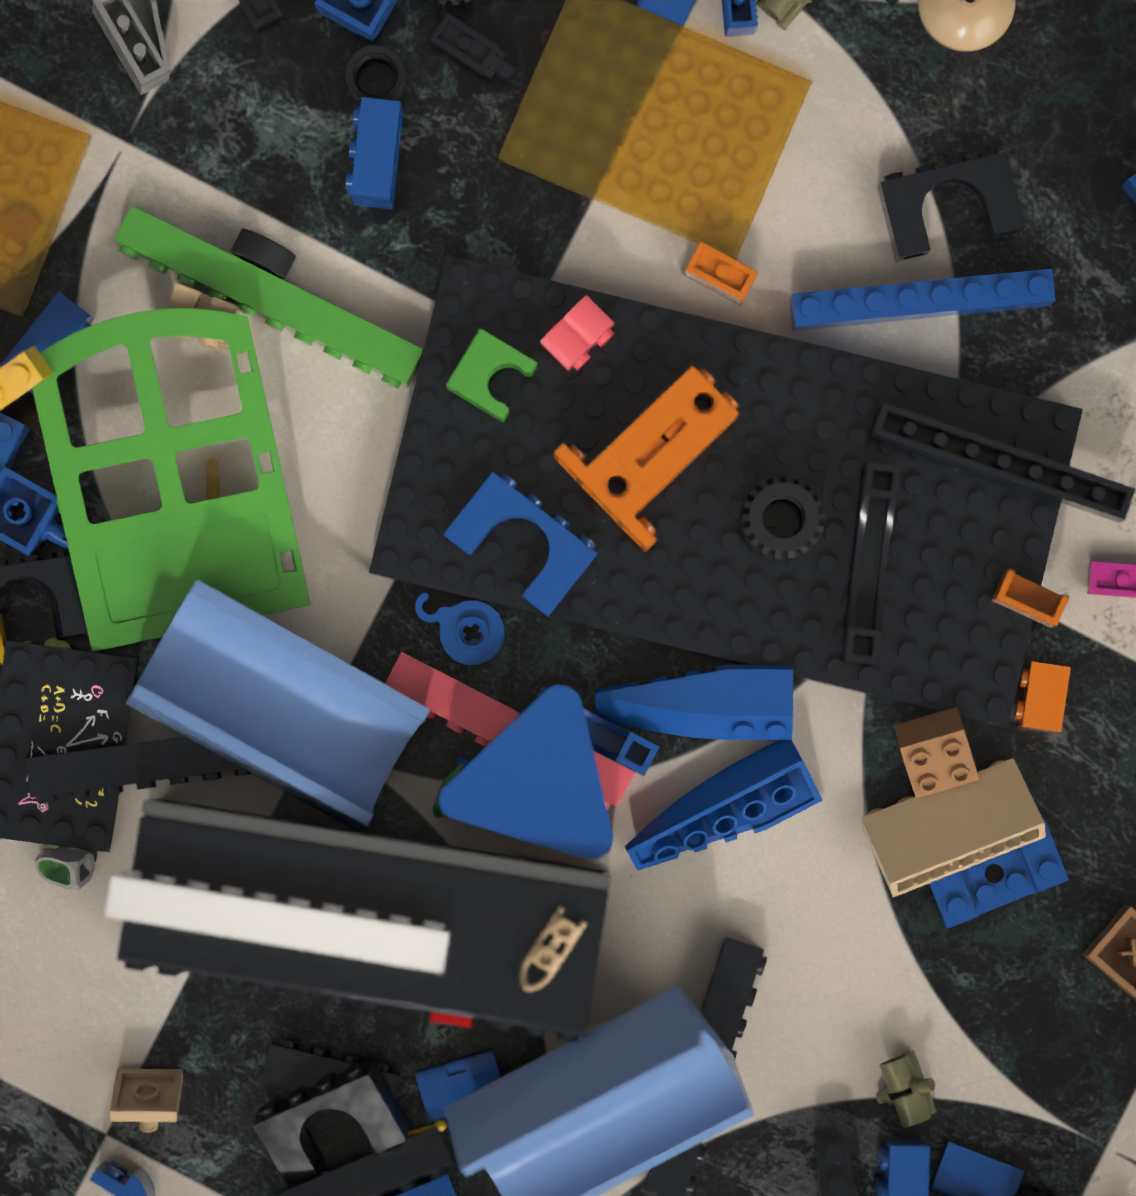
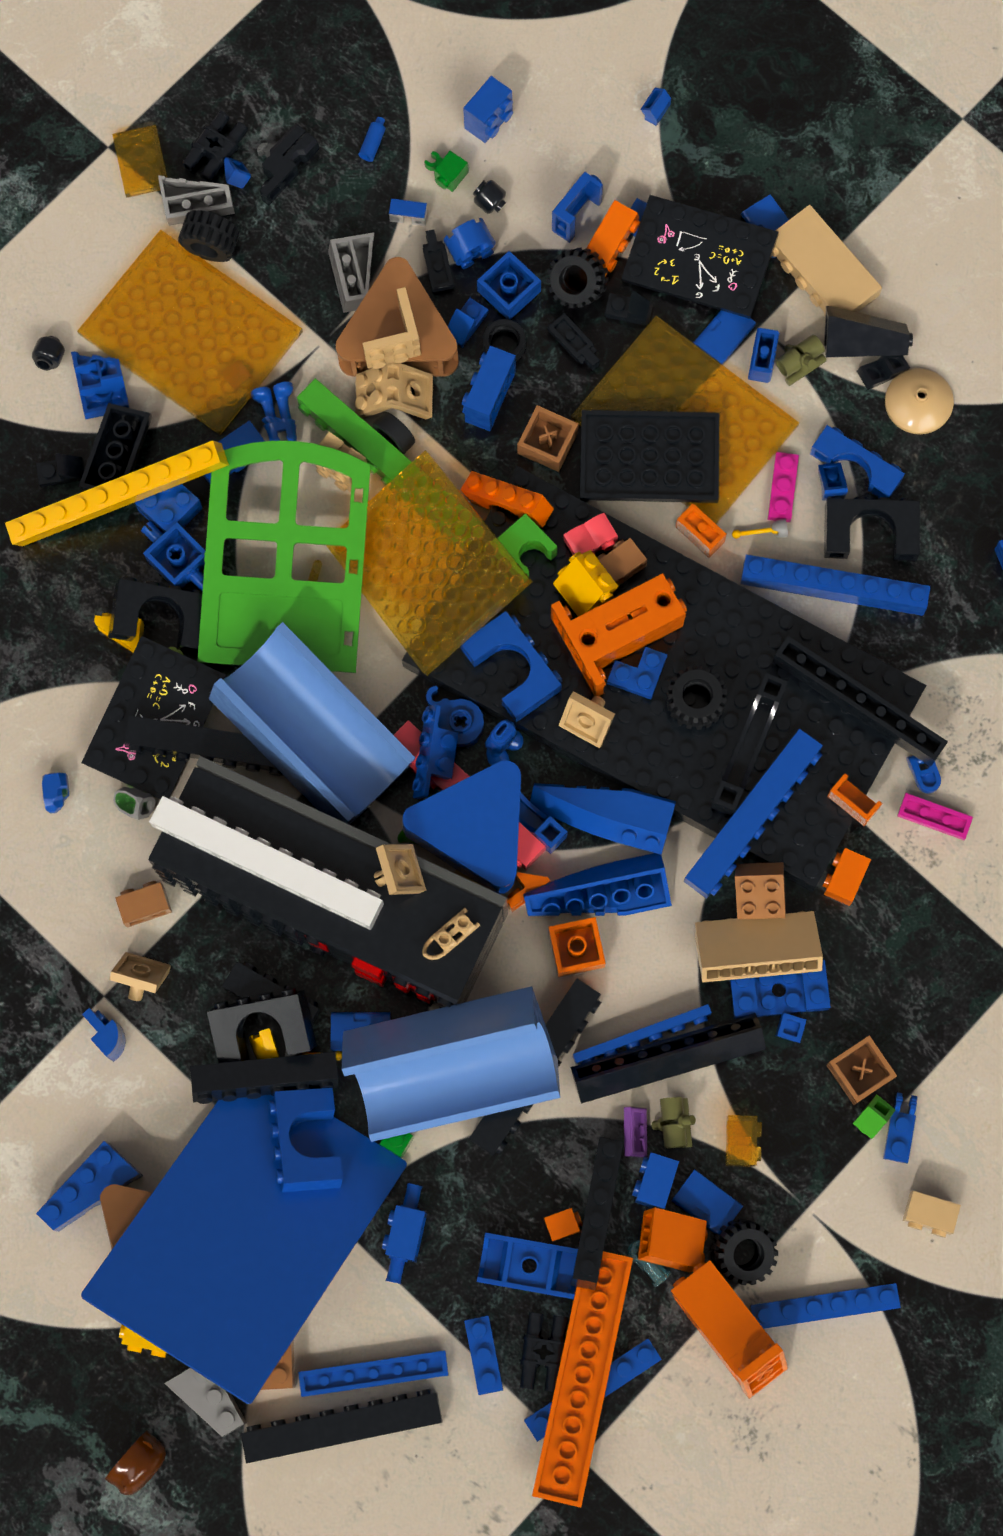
camera: 25 degrees right, 10 degrees down
(93, 286) = (274, 424): none -> blue piece
(121, 1000) = (143, 904): none -> medium nougat brick
(224, 103) = (380, 317): none -> medium nougat brick
(240, 140) = (395, 347): none -> tan bracket
(244, 192) = (393, 391): none -> tan bracket
(314, 61) = (466, 321): none -> blue slope
(341, 1142) = (264, 1044): none -> yellow brick
(372, 431) = (432, 564): none -> clear yellow plate
(447, 306) = (490, 491): none -> orange arch
(452, 689) = (435, 753): none -> blue bracket
(460, 884) = (399, 869): none -> tan tile
(476, 201) = (547, 438): none -> medium nougat brick
(536, 647) = (502, 737): none -> blue piece
(590, 405) = (585, 583): none -> yellow brick
(623, 189) = (649, 456): none -> black plate
(626, 360) = (623, 561): none -> medium nougat brick
(629, 826) = (528, 882): none -> orange slope
(644, 588) = (587, 718): none -> tan tile
(700, 512) = (641, 679): none -> blue plate
(714, 895) = (576, 947): none -> orange brick
(814, 178) = (783, 486): none -> dark pink plate
(822, 994) = (652, 1032): none -> blue plate
(824, 240) = (778, 528): none -> hinge
(858, 1115) = (635, 1132): none -> medium lavender plate
(875, 1007) = (668, 1058): none -> black brick
(879, 151) = (832, 480): none -> blue slope
(901, 655) = (753, 813): none -> blue brick
(946, 128) = (835, 447): none -> blue arch
(1000, 1087) = (742, 1140): none -> clear yellow brick
(1023, 919) = (790, 1027): none -> blue plate
(1112, 535) = (926, 780): none -> blue plate

